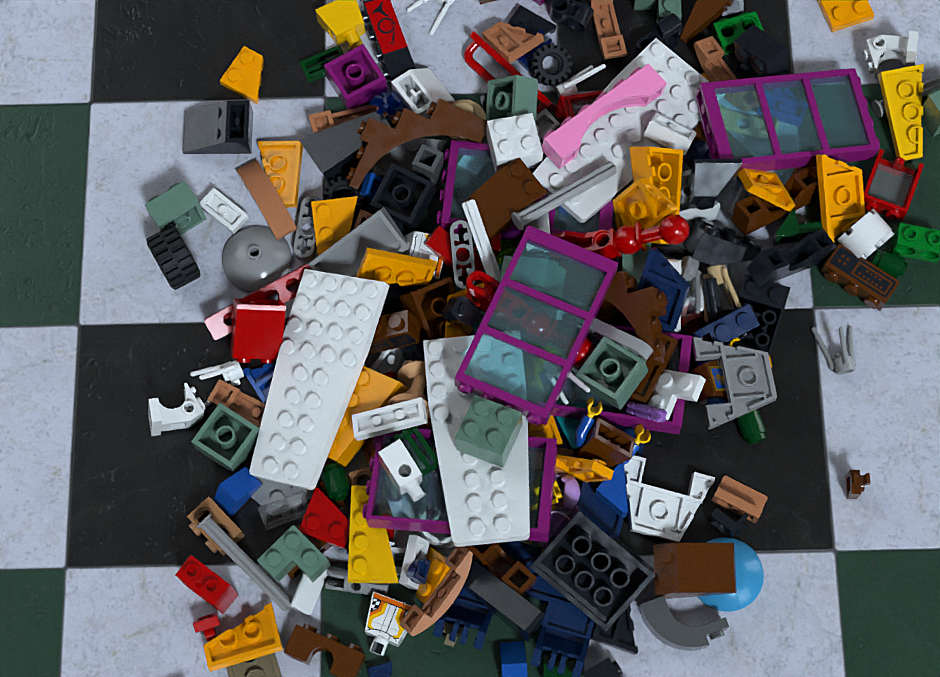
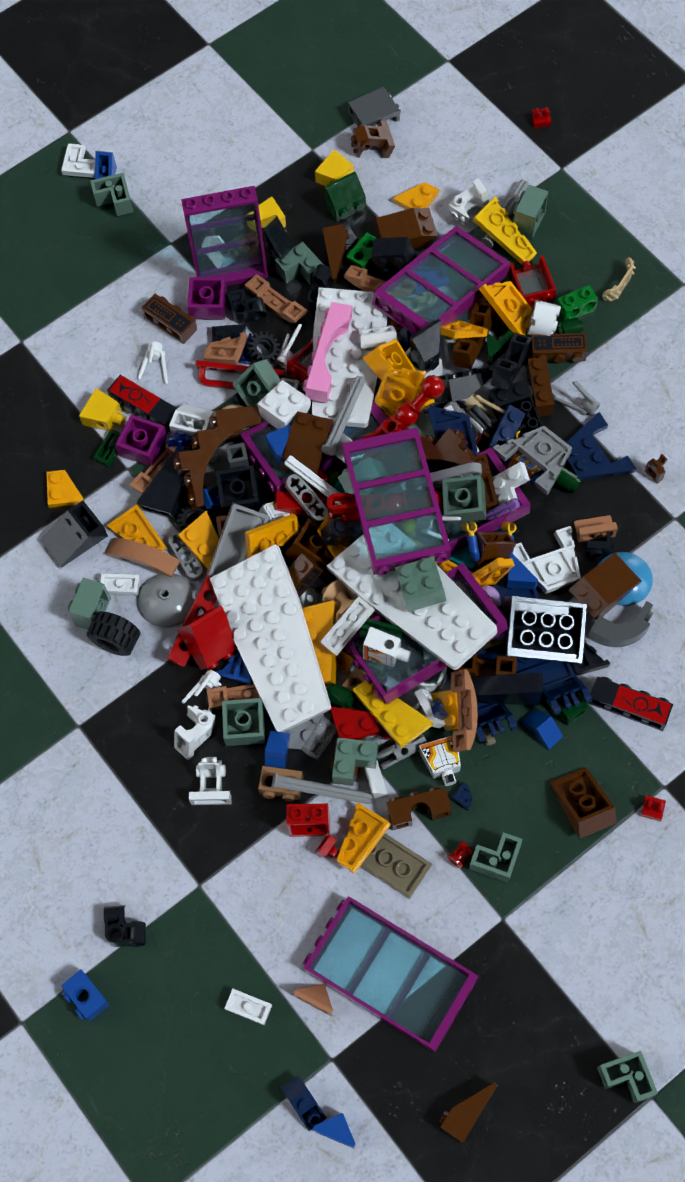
camera: 35 degrees left, 5 degrees down
(164, 460) = (210, 768): none -> white tile
(476, 175) = (277, 442): none -> blue slope
(794, 416) = (588, 458): none -> dark blue wing
(804, 305) = (539, 380): none -> reddish brown arch
(806, 36) = (411, 223): none -> reddish brown slope

